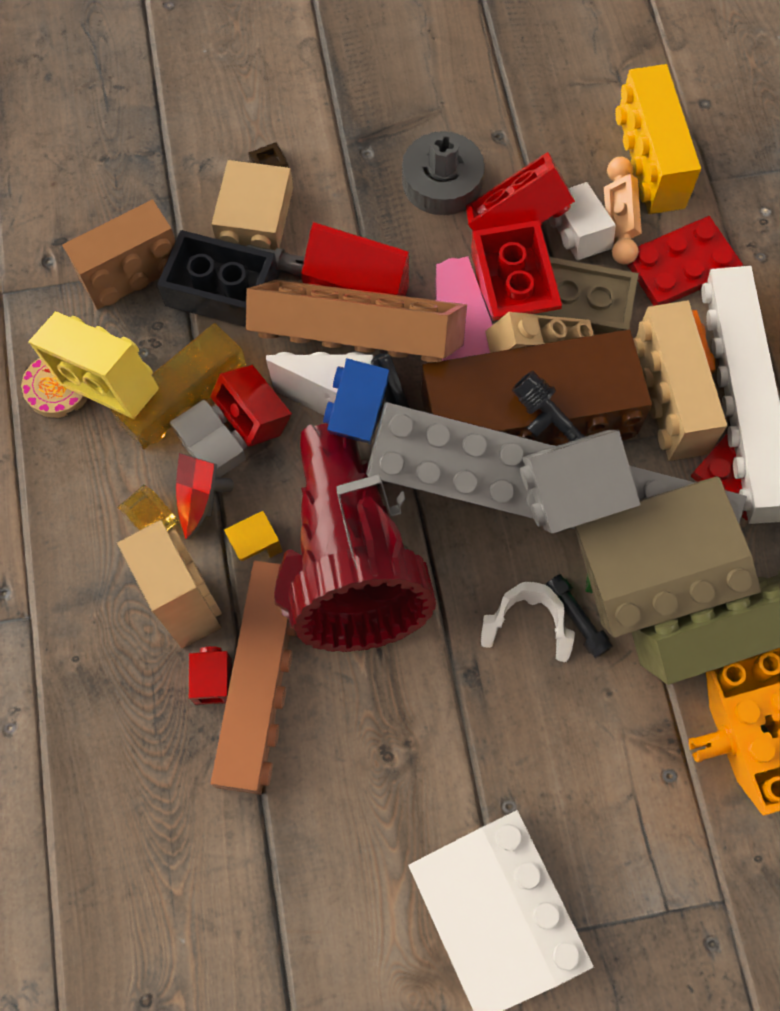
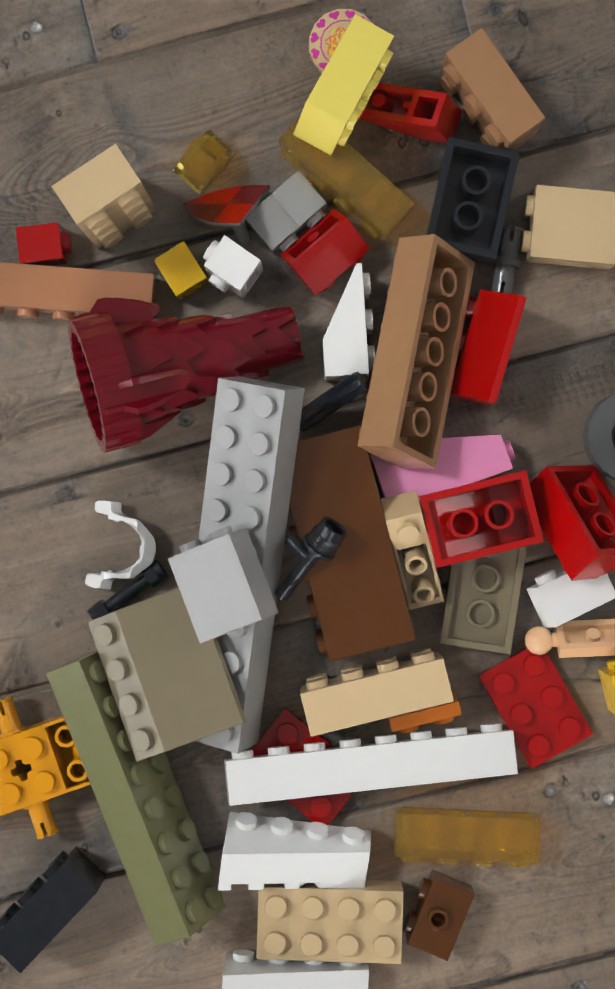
camera: 85 degrees right, 20 degrees up
(133, 314) = (413, 112): none -> red slope
(255, 483) = (231, 267): none -> white brick
(357, 400) = (307, 361): blue brick -> none
(363, 483) = (201, 366): light grey piece -> none

